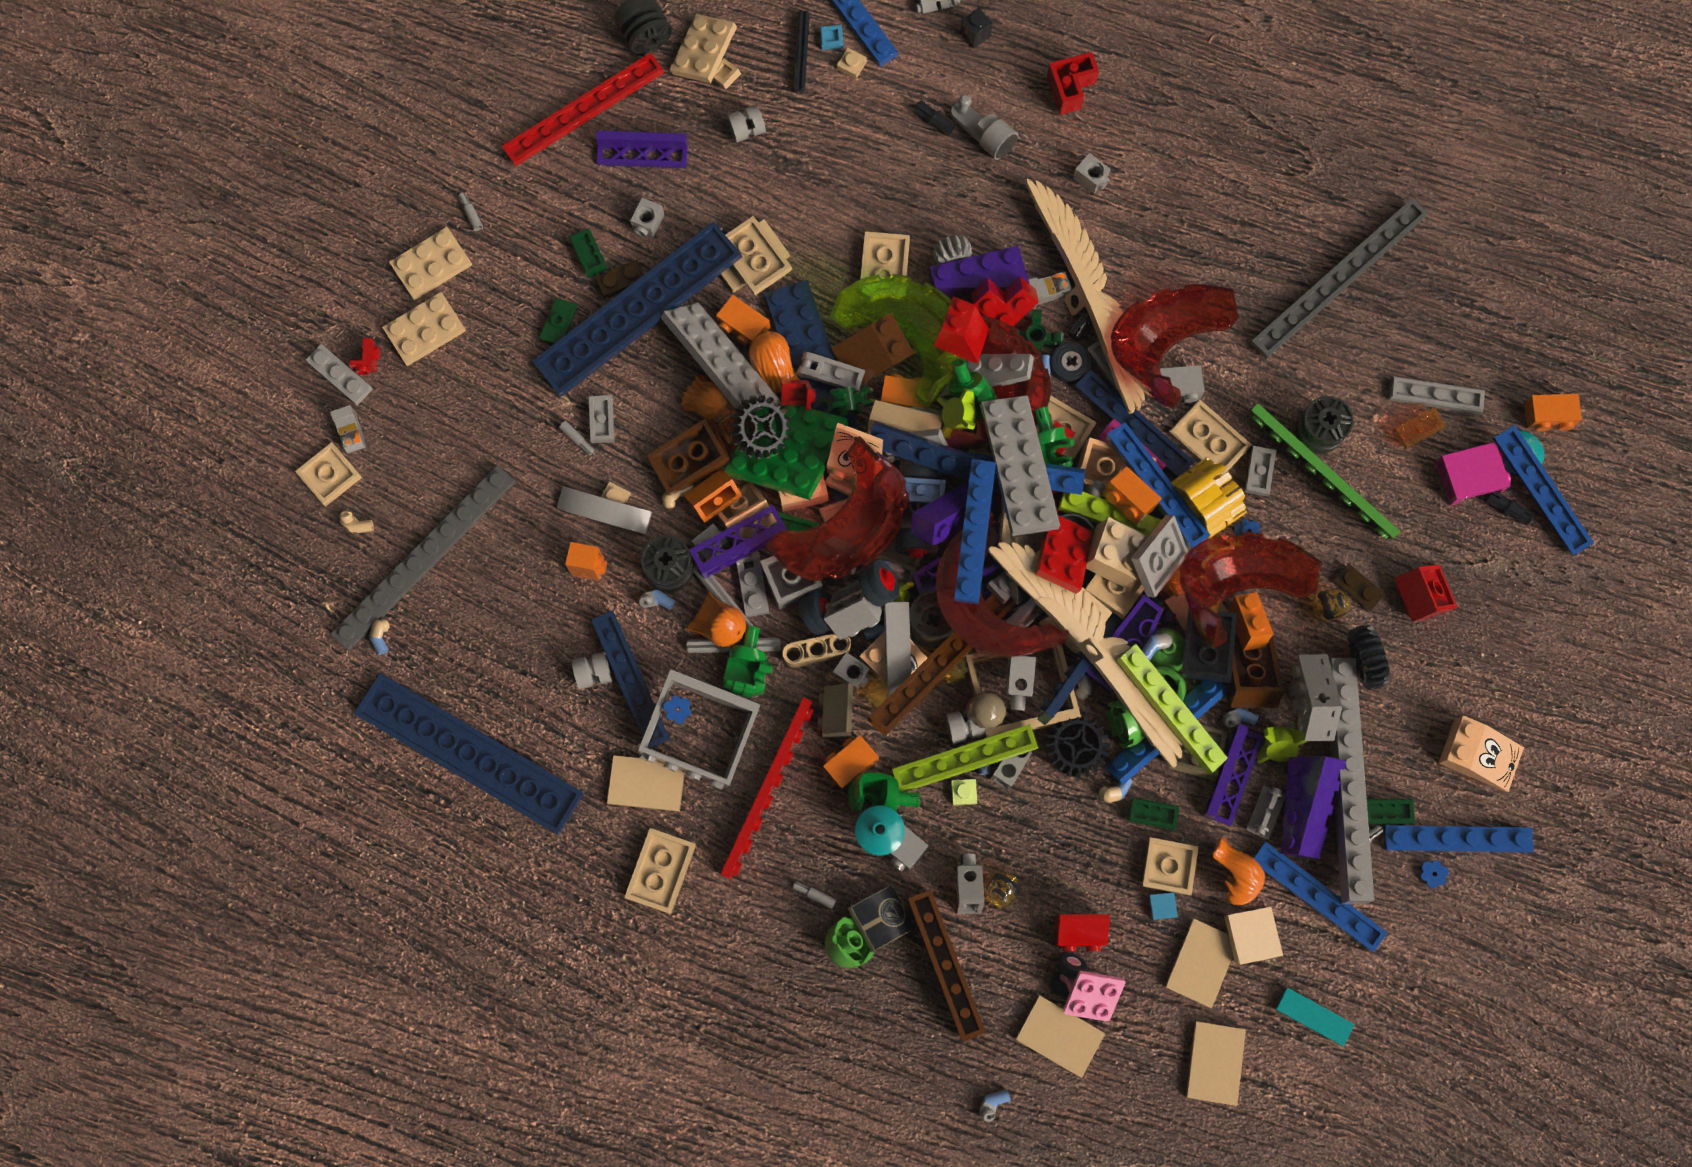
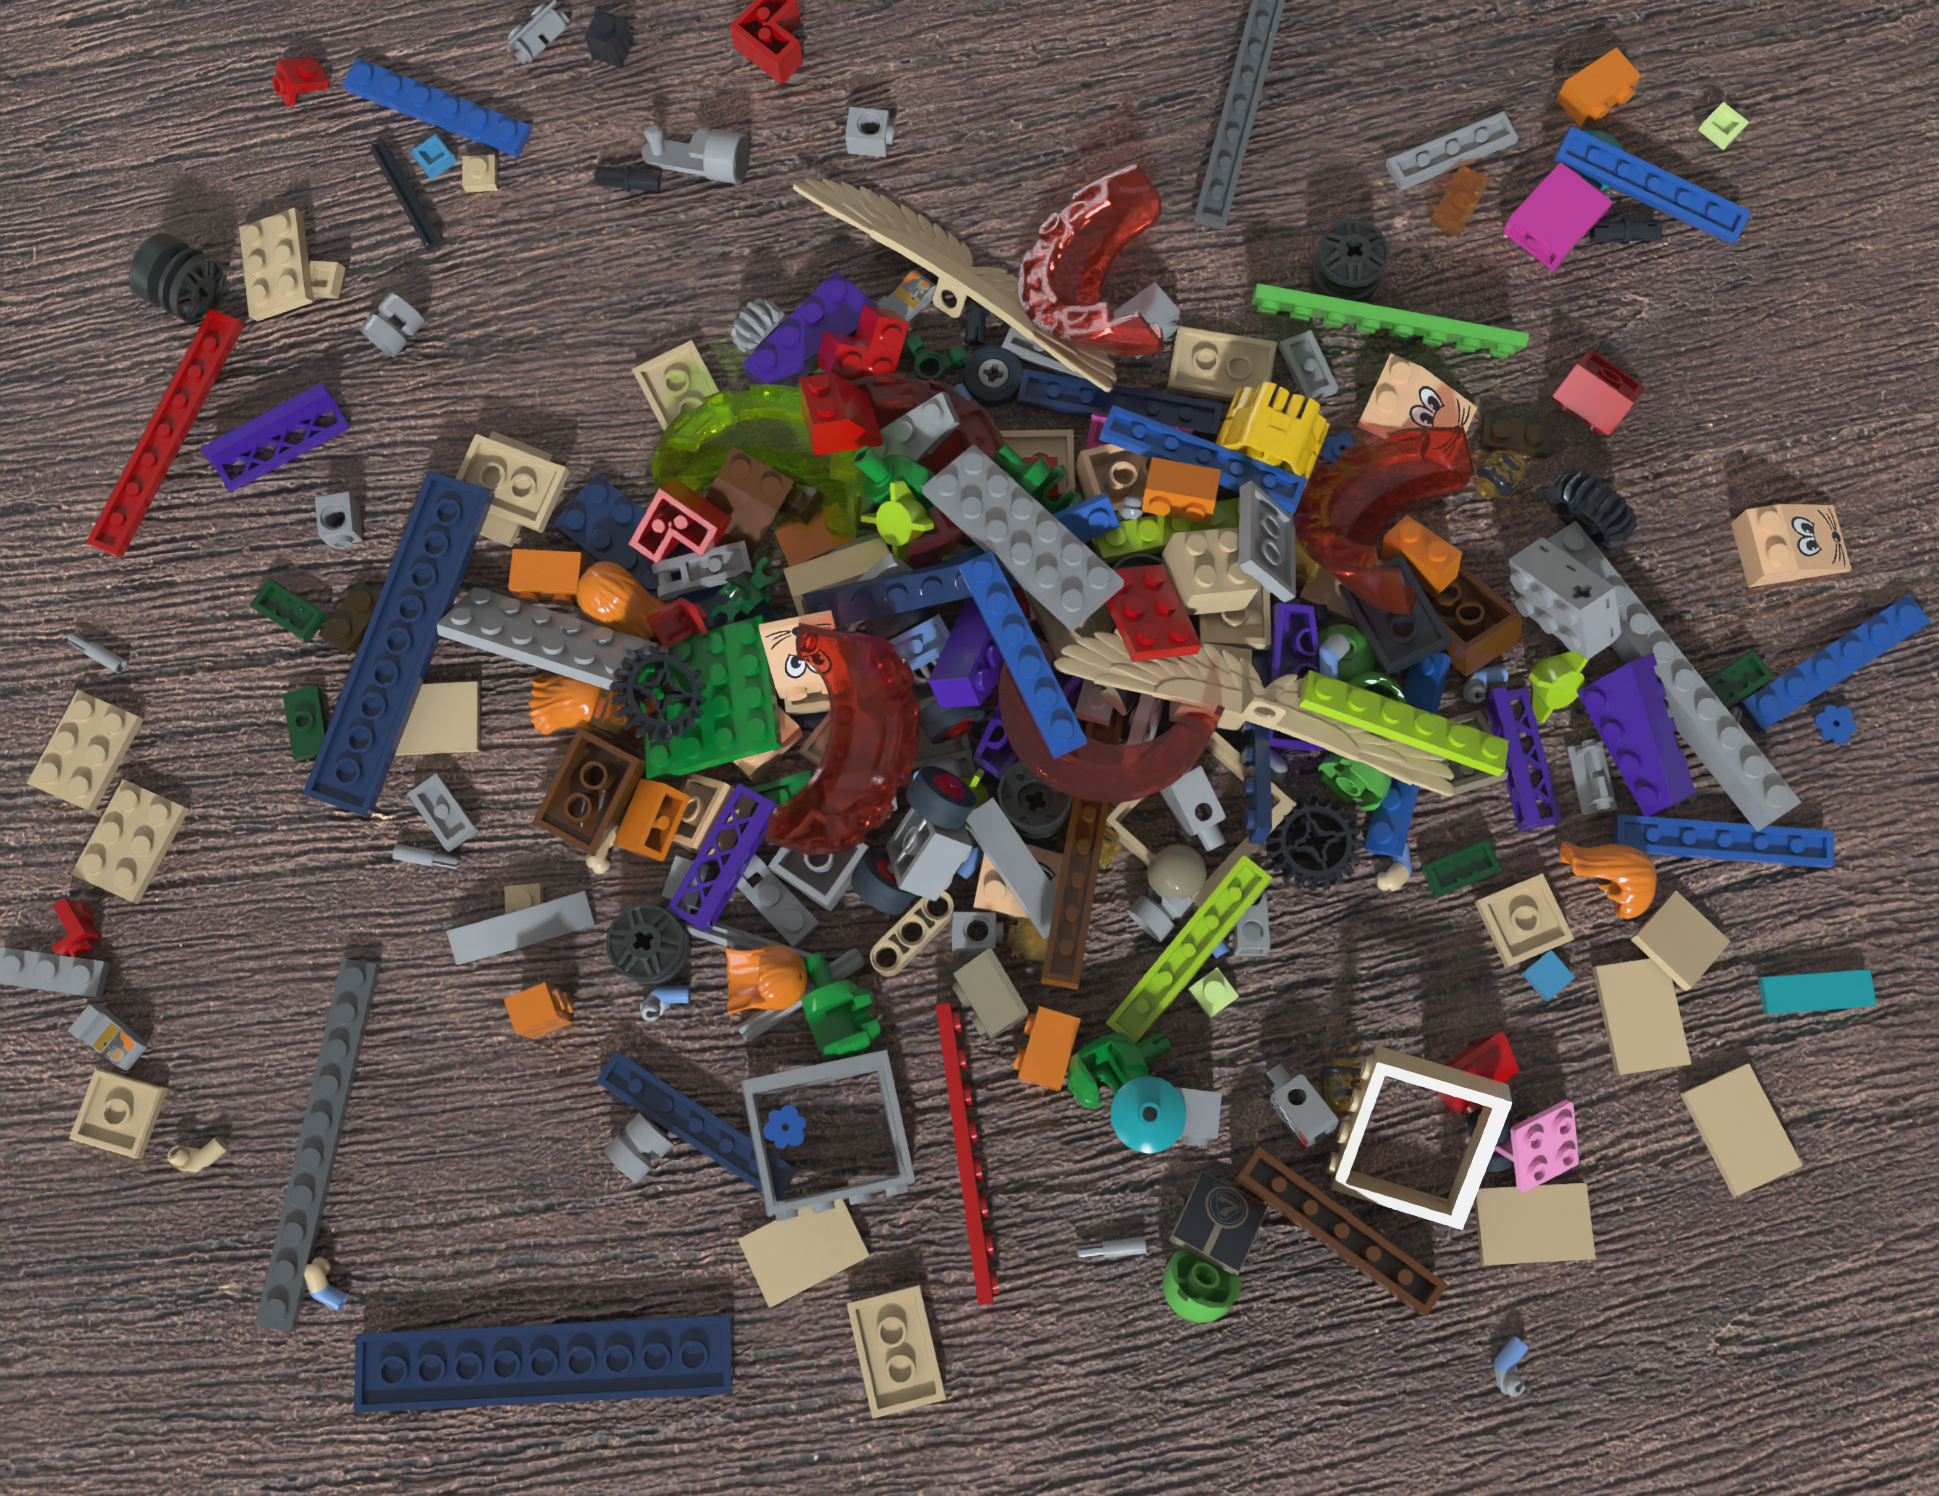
camera: 30 degrees left, 0 degrees up
(634, 367) = (443, 720): none -> tan tile
(836, 335) = (676, 517): none -> red brick
(910, 369) = (802, 503): none -> dark brown plate
(1053, 914) = (1438, 1077): none -> tan window
(1309, 528) = (1413, 398): none -> light nougat slope
(1615, 481) = (1723, 126): none -> yellowish green plate

